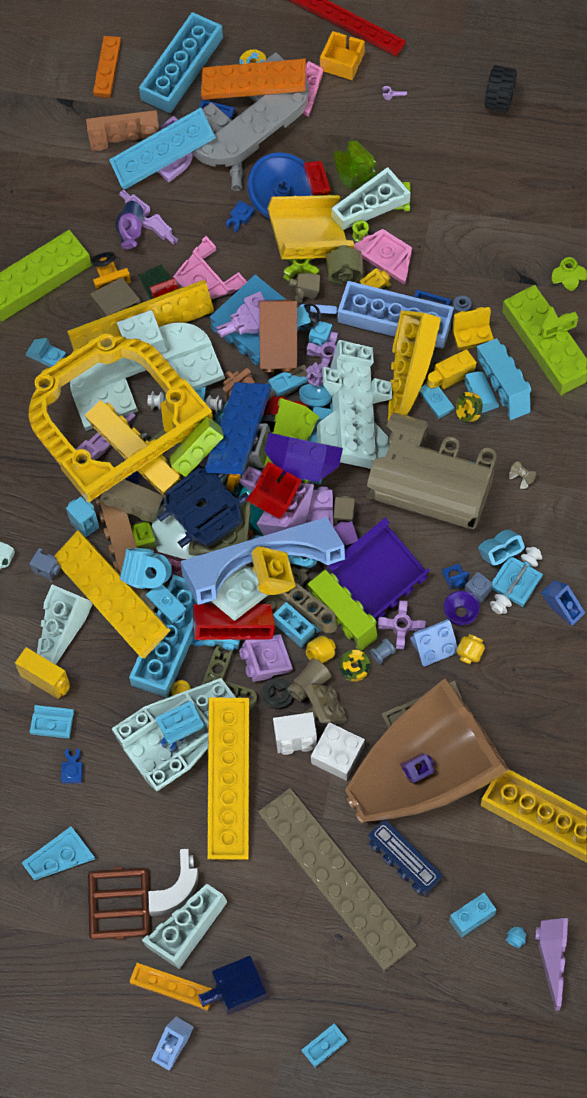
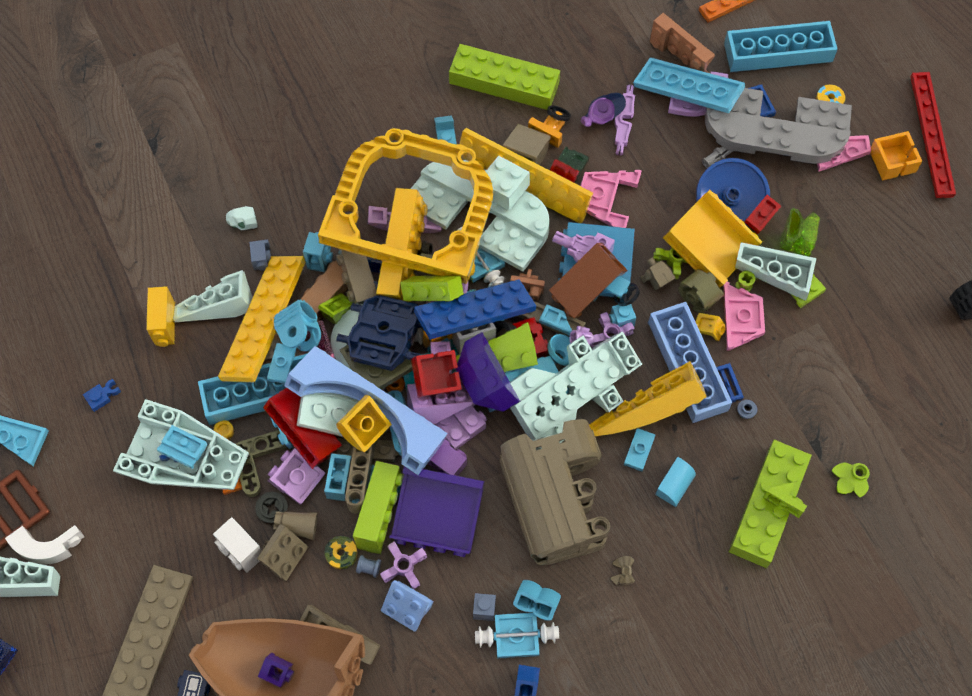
camera: 50 degrees right, 0 degrees up
(52, 721) = (129, 353): medium azure plate -> none
(228, 779) = (160, 519): yellow plate -> none
(240, 214) = (685, 183): blue plate -> none
(254, 79) = (810, 105): orange plate -> none
(321, 649) = (333, 514): yellow head -> none
(324, 309) = (646, 299): light blue tile -> none
(337, 751) = (248, 592): white brick -> none
(344, 509) = (475, 446): dark tan brick -> none
(388, 93) = (896, 217): lavender hand -> none
(451, 370) = (673, 443): yellow brick -> none
(458, 580) = (478, 585): blue bracket -> none
(464, 600) = (450, 595): dark purple piece -> none
(469, 407) = (651, 481): piece -> none
(470, 649) = (422, 639): yellow head -> none
(472, 328) = (728, 433): yellow bracket -> none
(505, 378) = (703, 492): medium azure wedge -> none

